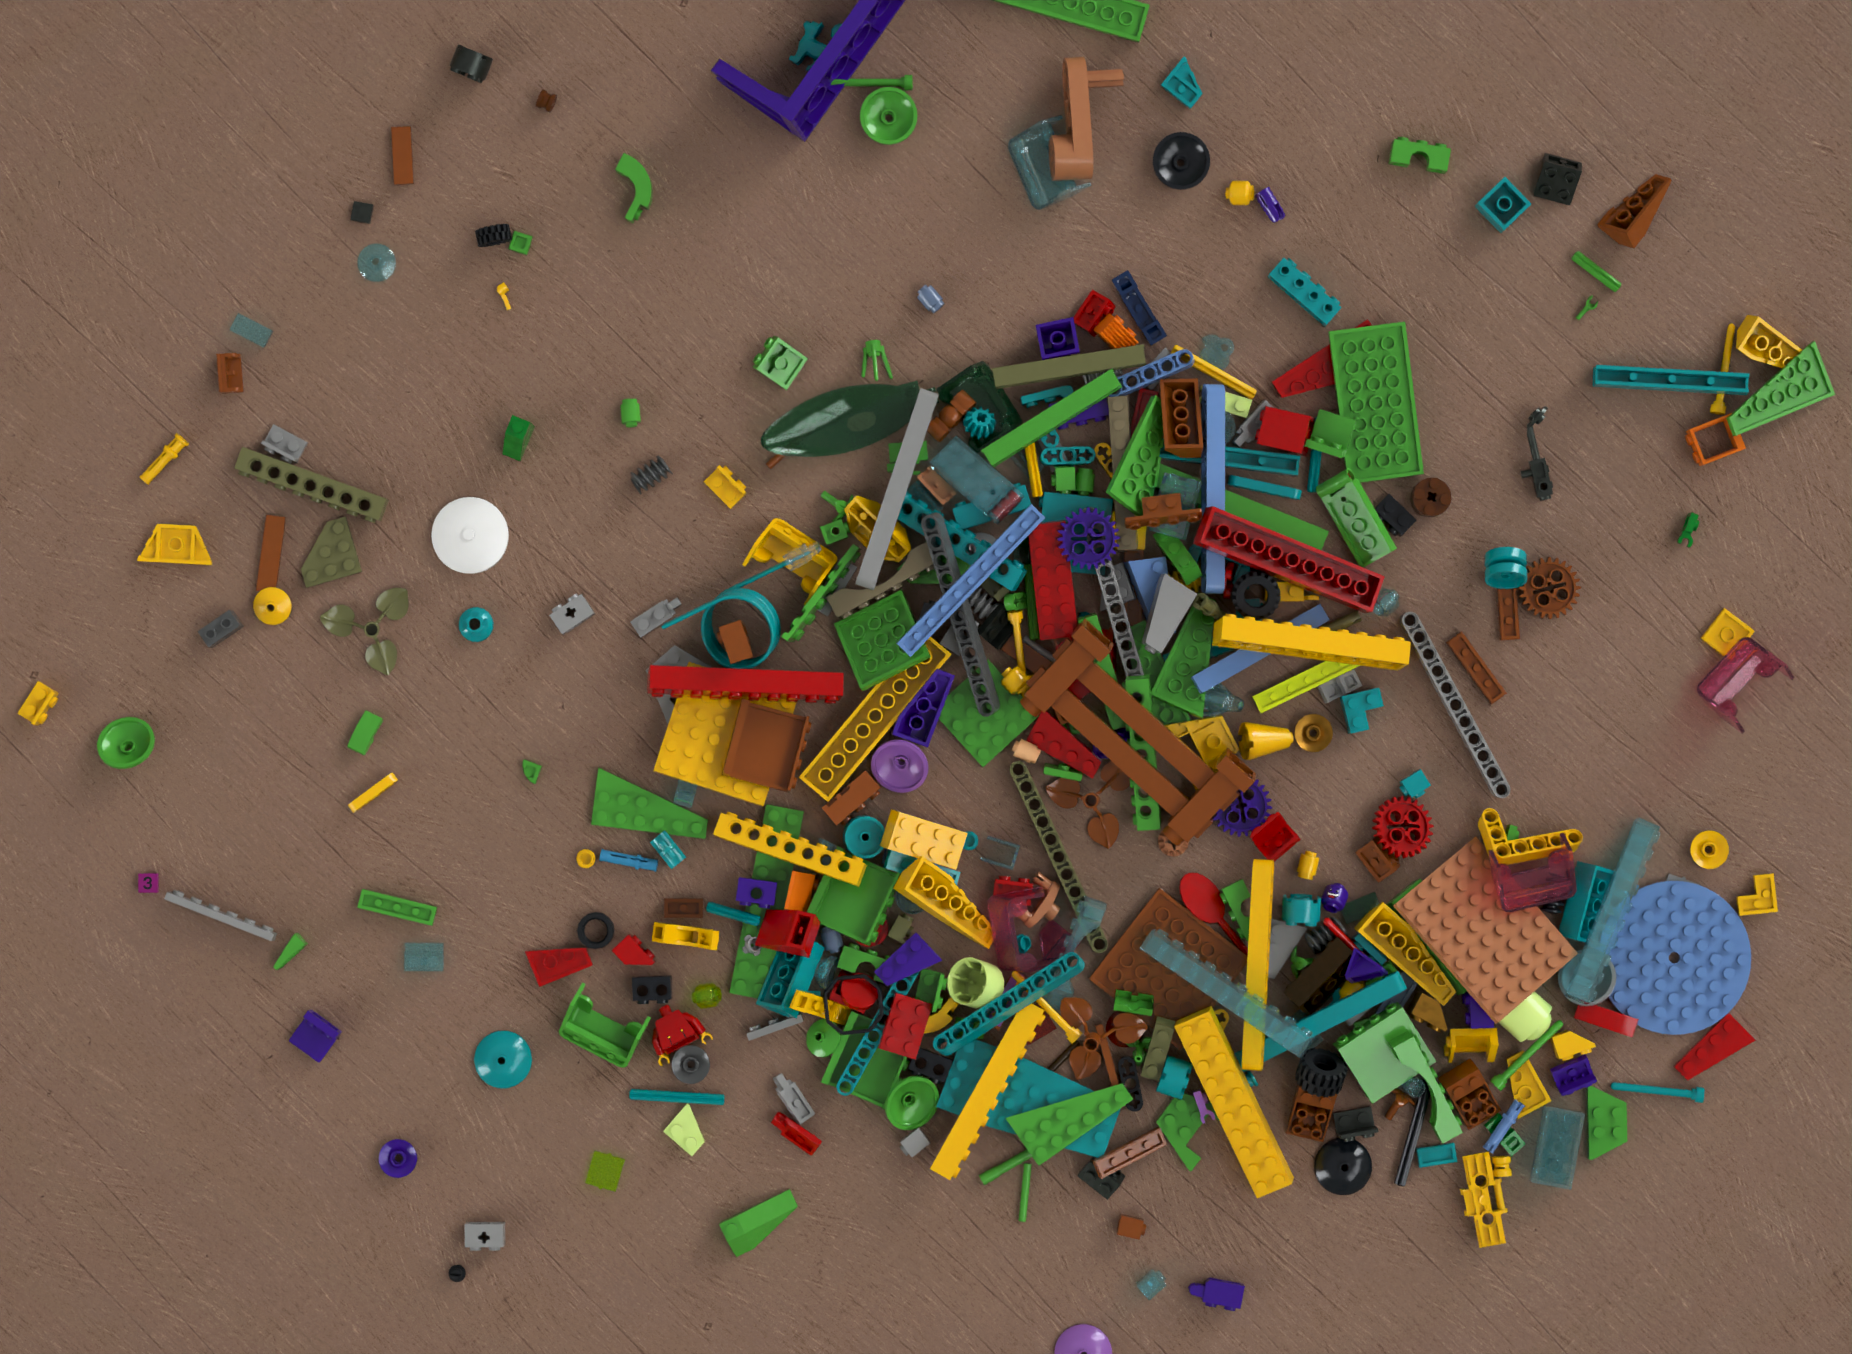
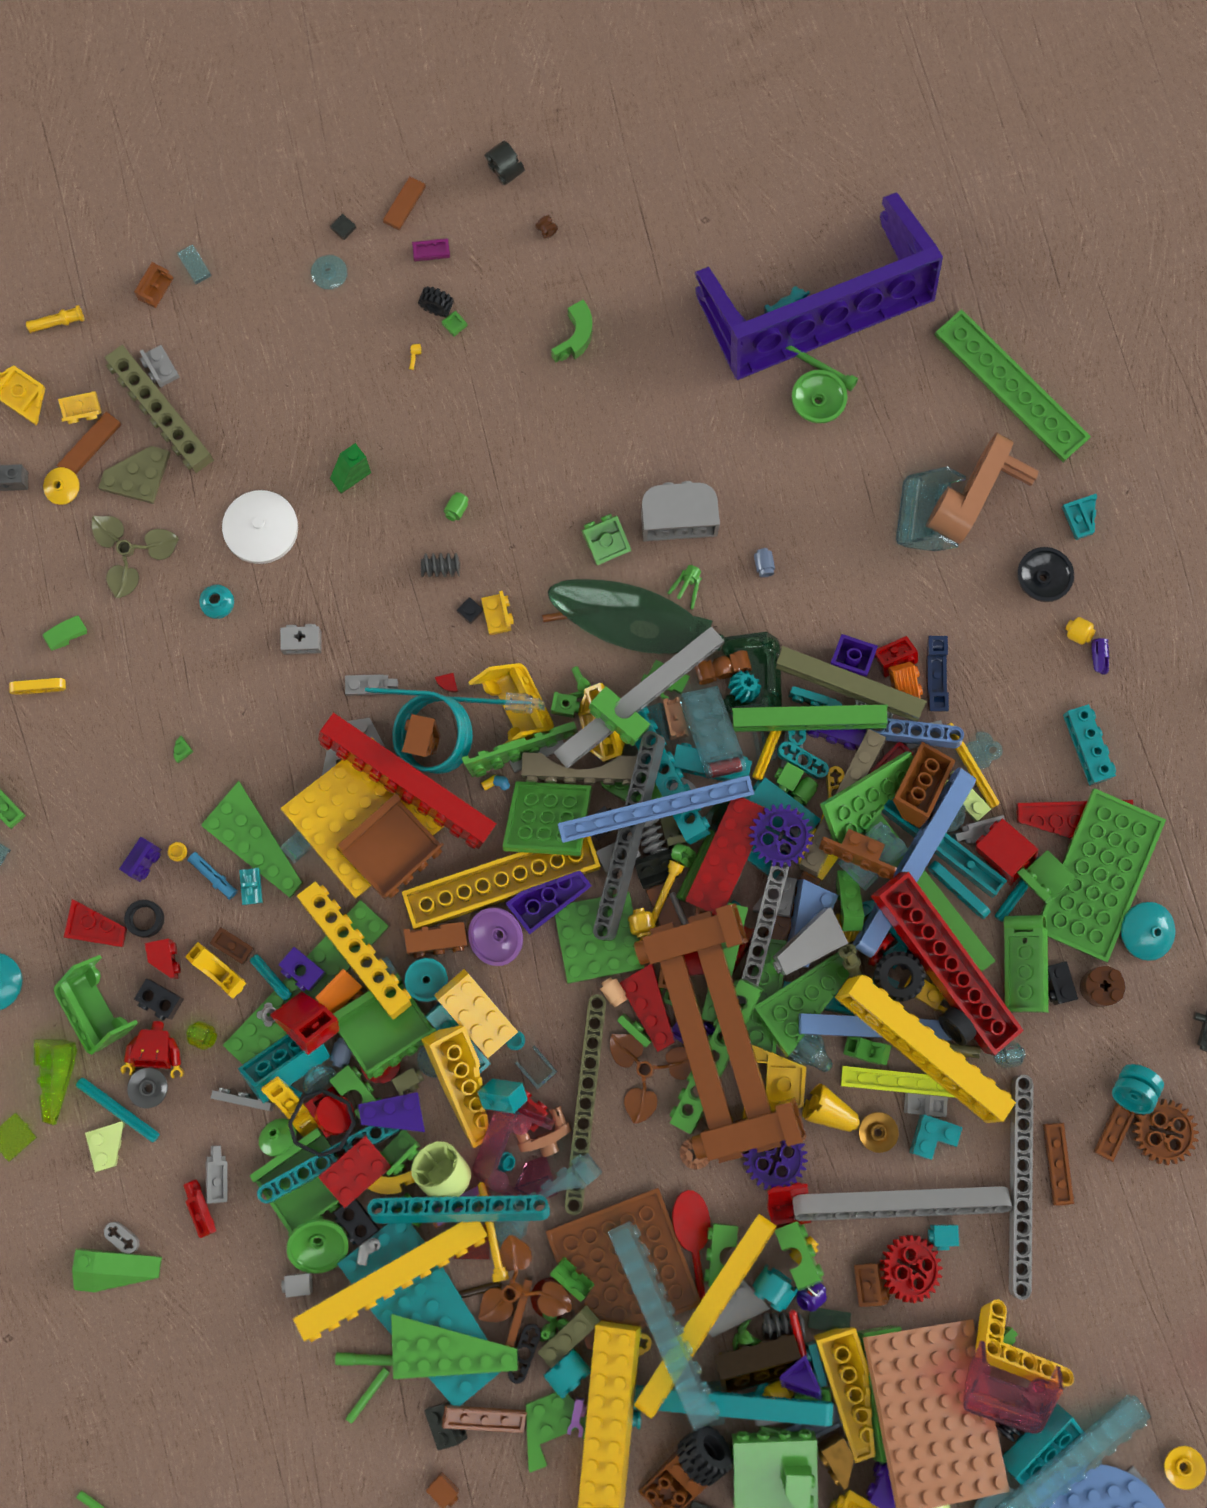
camera: 25 degrees right, 10 degrees down
(241, 526) = (80, 406): none -> yellow bracket
(455, 186) = (431, 249): none -> magenta plate
(559, 884) = (140, 859): none -> dark purple bracket
(604, 1095) = (55, 1065): none -> clear neon green wedge
(700, 498) = (470, 610): none -> black plate
(721, 573) = (447, 682): none -> red tile
(747, 1198) = (117, 1241): none -> light grey beam
(818, 632) = (496, 780): none -> arm
(829, 299) = (679, 512): none -> light grey brick
(907, 525) = (629, 729): none -> bright green arch
(952, 1081) = (367, 1248): none -> light grey arm
(987, 892) = (502, 1095): none -> teal brick
(1265, 671) = (867, 1050): none -> bright green brick
(1319, 882) = (807, 1273): none -> bright green arch
(1327, 606) = (957, 1026): none -> black tyre
(1365, 779) = (901, 1203): none -> light grey beam
(1433, 427) = (1139, 929): none -> teal dish

